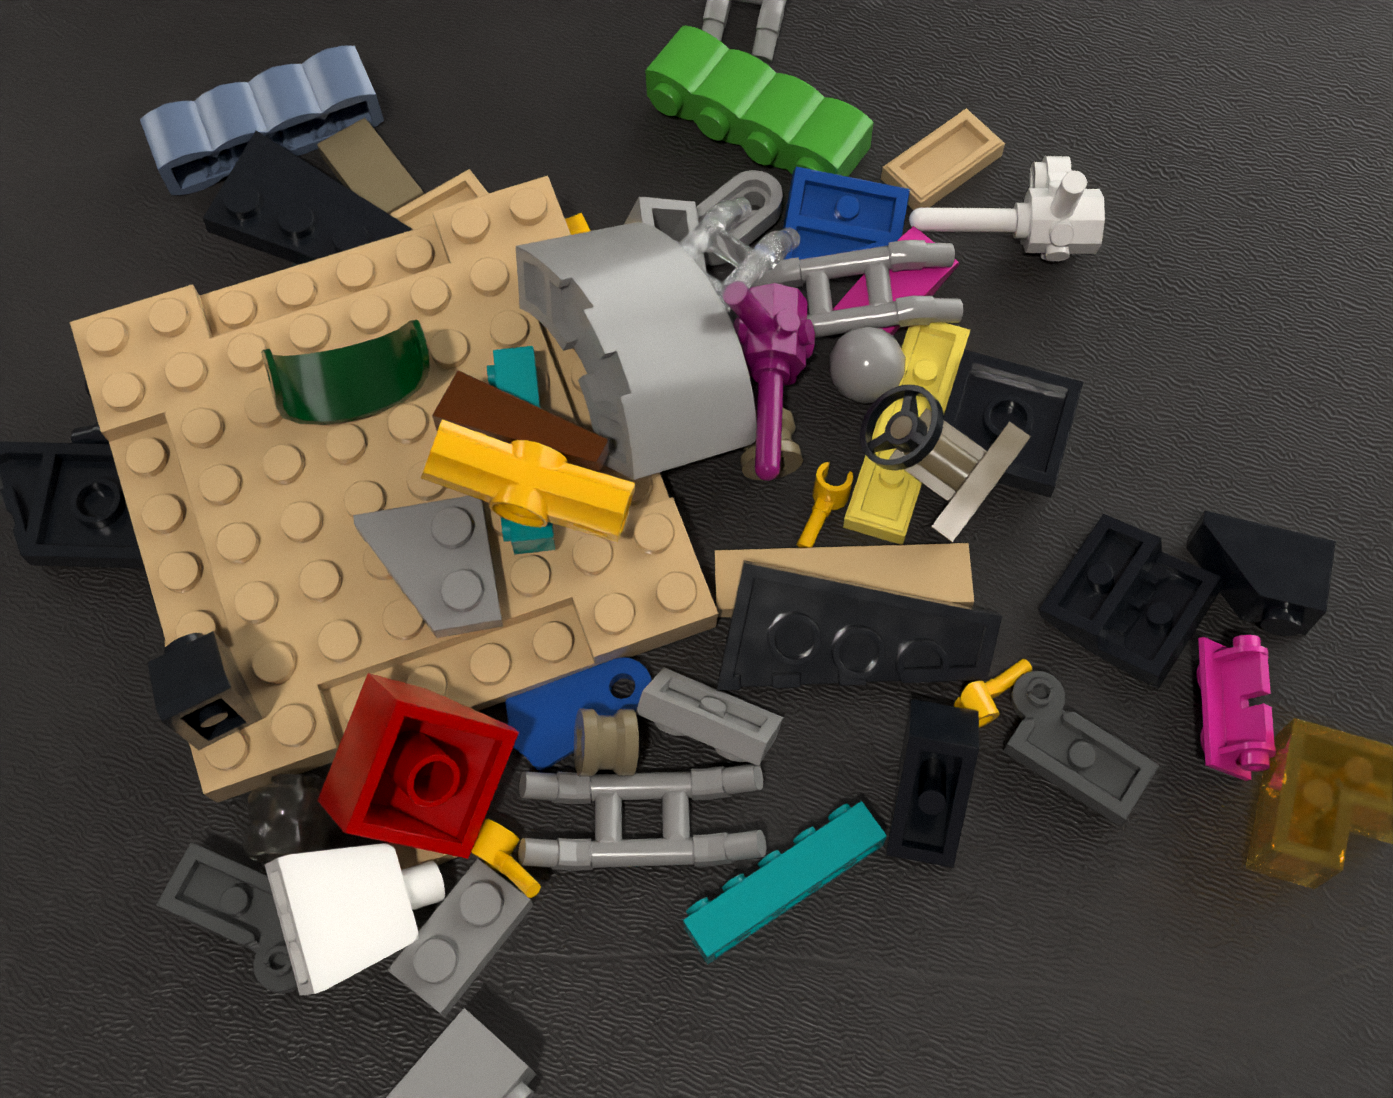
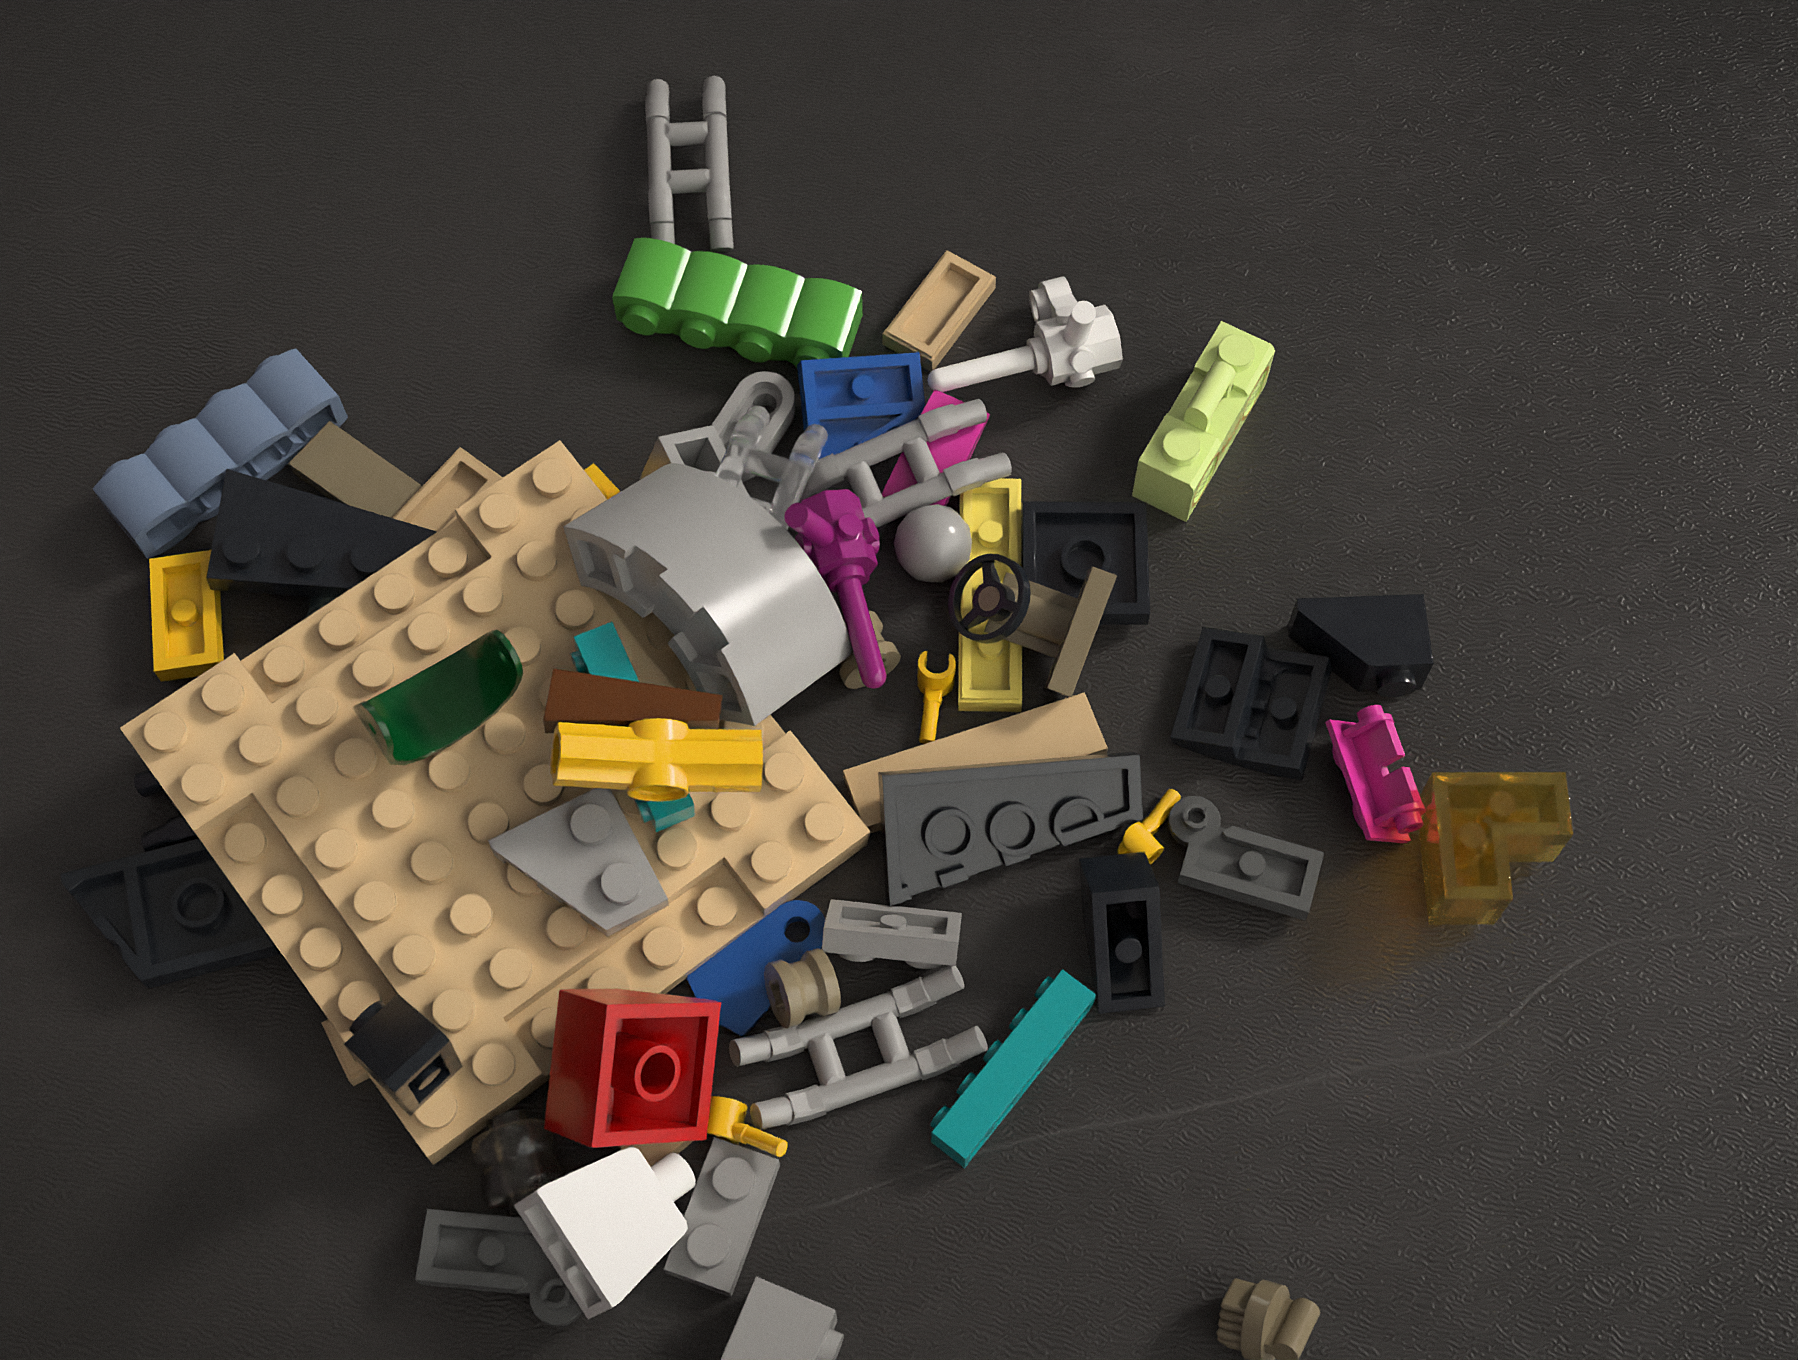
camera: 20 degrees left, 0 degrees up
(180, 248) = (184, 616): none -> yellow plate
(1163, 321) = (1203, 421): none -> yellowish green piece

